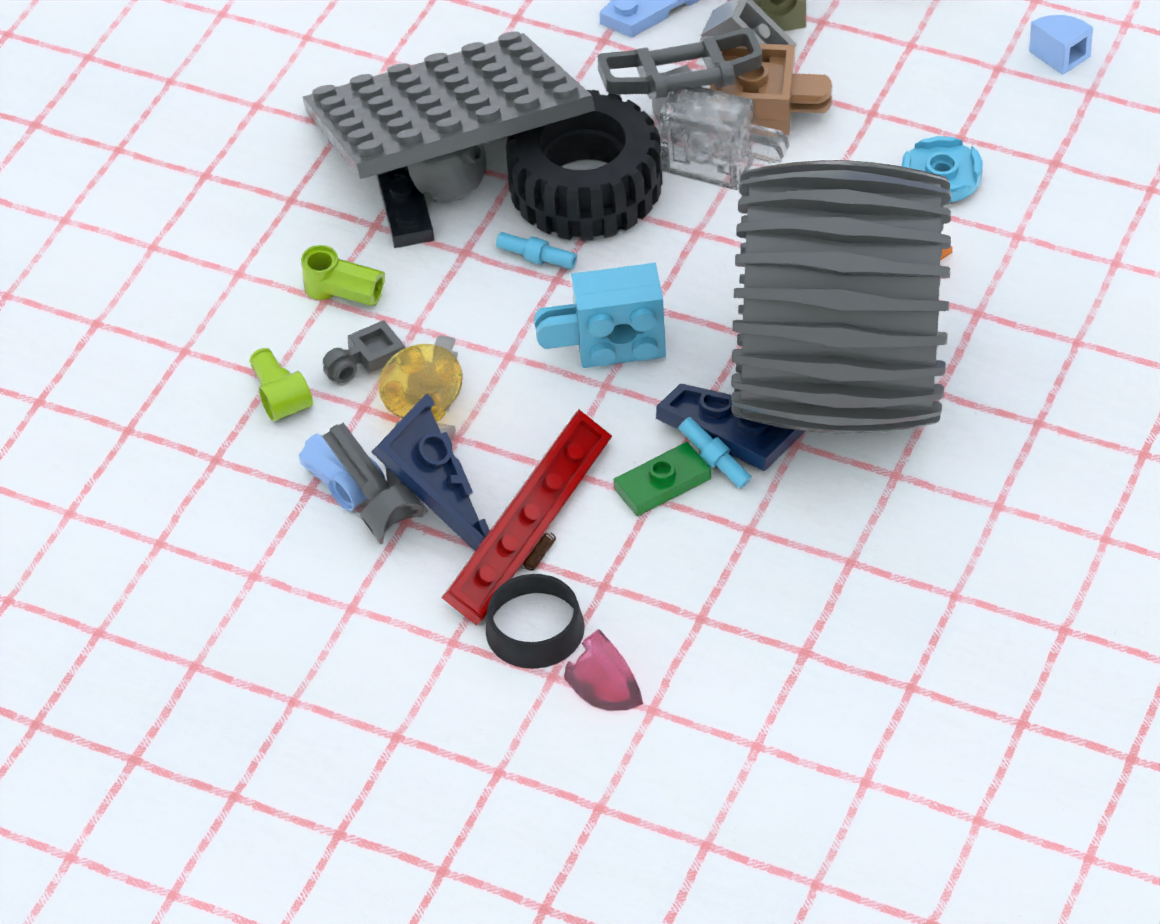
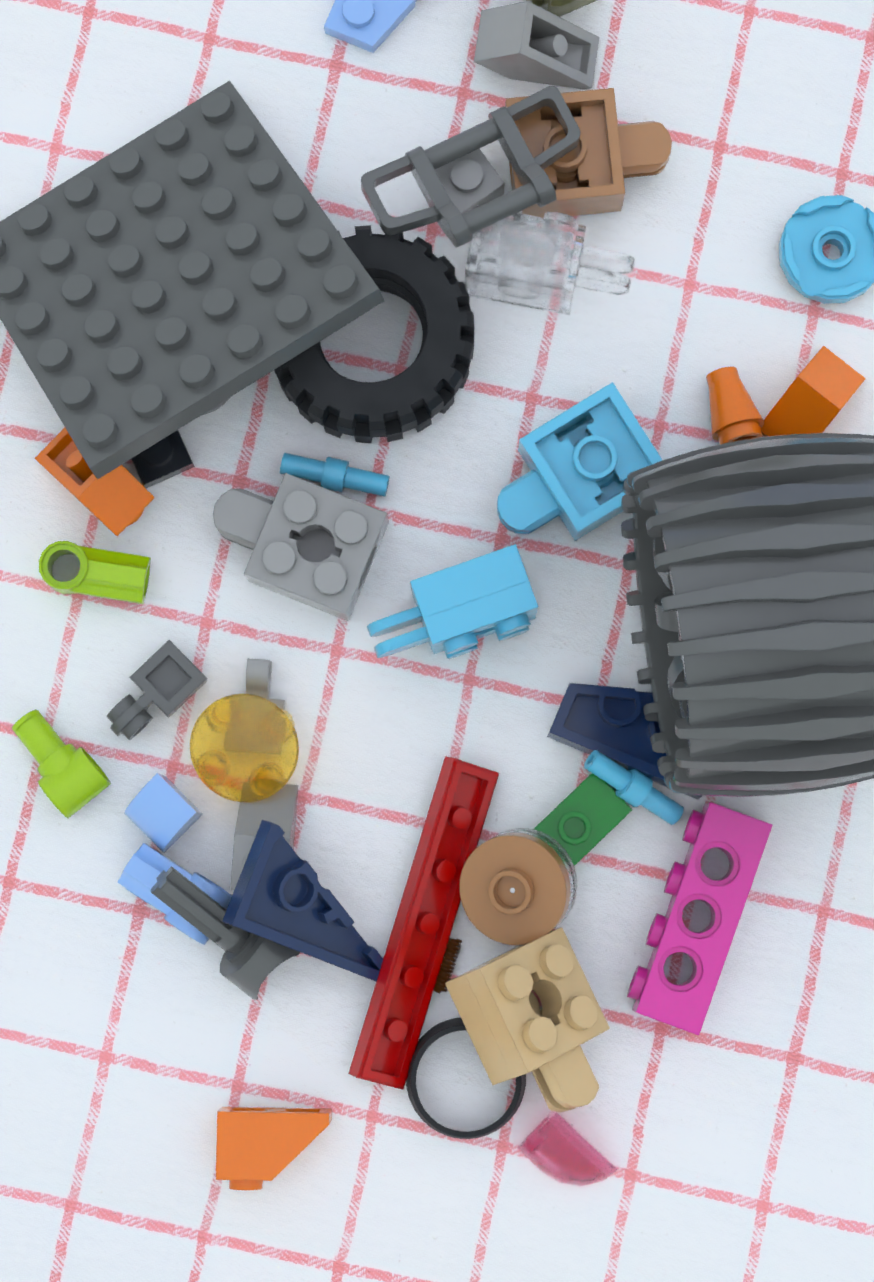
camera: 10 degrees left, 35 degrees up
(348, 406) = (162, 812): none -> light blue brick
(361, 227) = (114, 498): none -> orange slope
(365, 630) = (262, 1141): none -> orange slope
(504, 278) = (304, 542): none -> light grey brick
(594, 561) = (521, 1038): none -> tan brick
(607, 494) = (518, 886): none -> medium nougat piece
(704, 258) = (577, 467): none -> medium azure brick
(747, 539) = (743, 842): none -> dark pink brick

